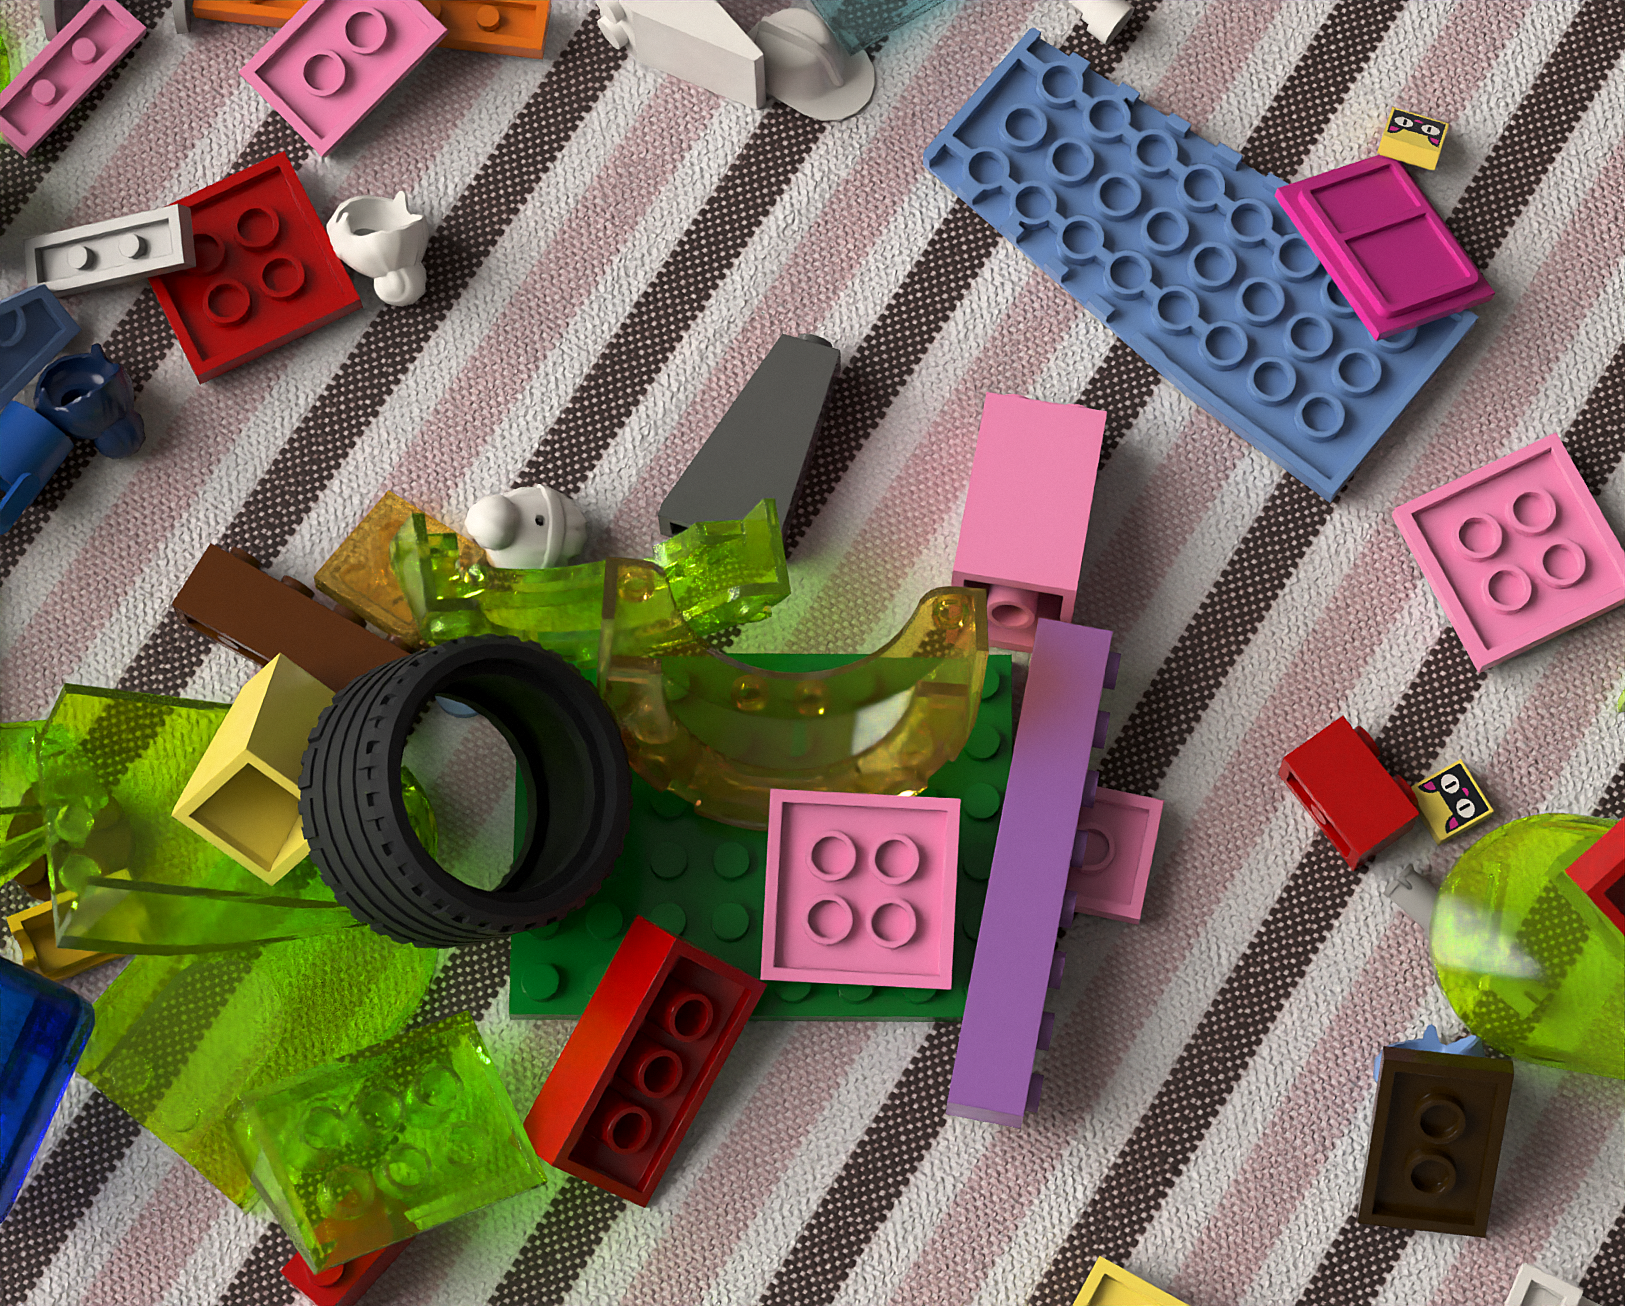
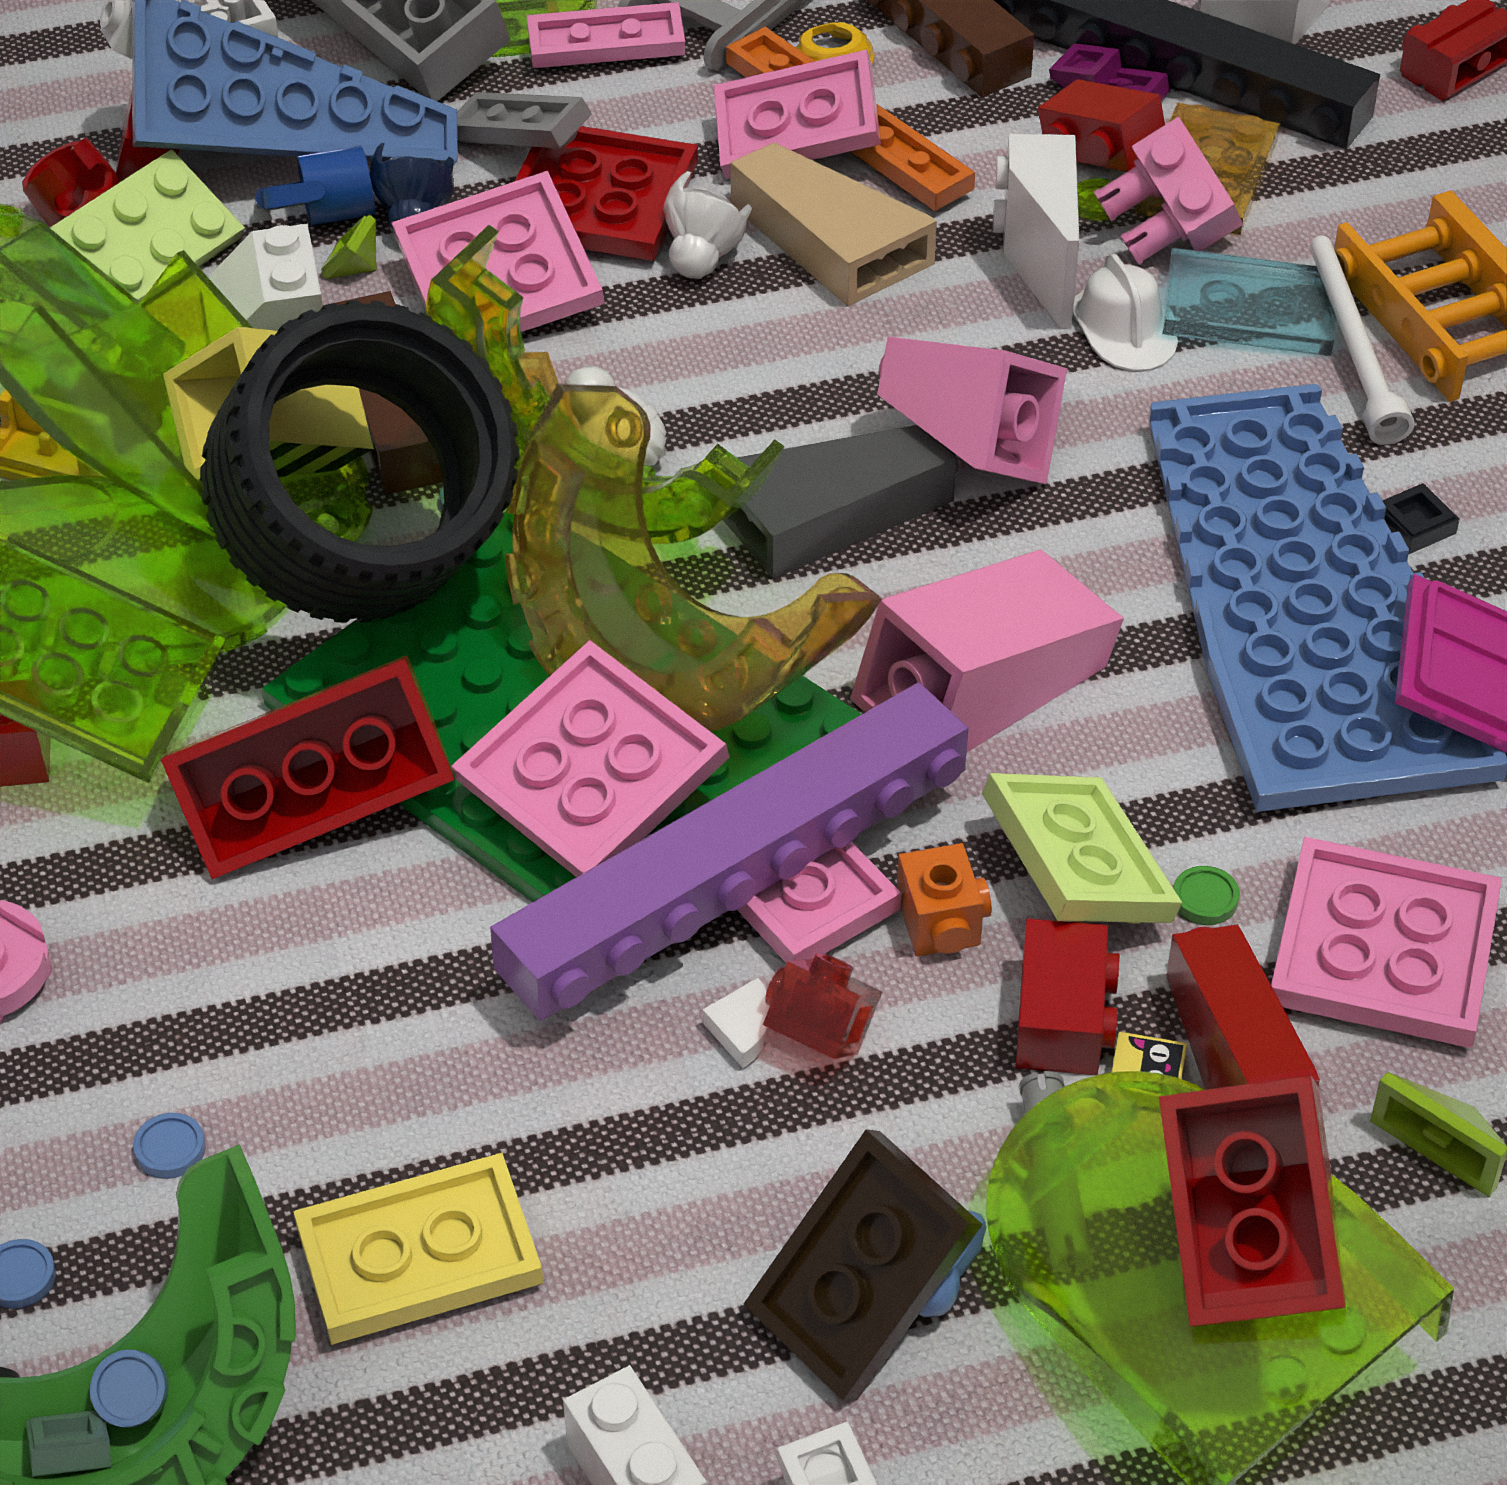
camera: 40 degrees right, 25 degrees down
(86, 619) = (271, 276): none -> white slope
(97, 508) = (354, 251): none -> lime slope
(256, 430) = (532, 253): none -> bright pink plate
(478, 153) = (832, 224): none -> tan slope
(805, 281) = (978, 402): none -> bright pink slope
(1145, 998) = (739, 1021): none -> white tile
(1195, 780) = (942, 899): none -> orange brick
(1202, 949) = (821, 1005): none -> clear red brick
(1209, 104) = (1419, 517): none -> black tile
(1257, 656) = (1081, 849): none -> yellowish green plate
(1355, 608) = (1207, 895): none -> bright green piece
(1501, 730) = (1232, 1011): none -> red slope

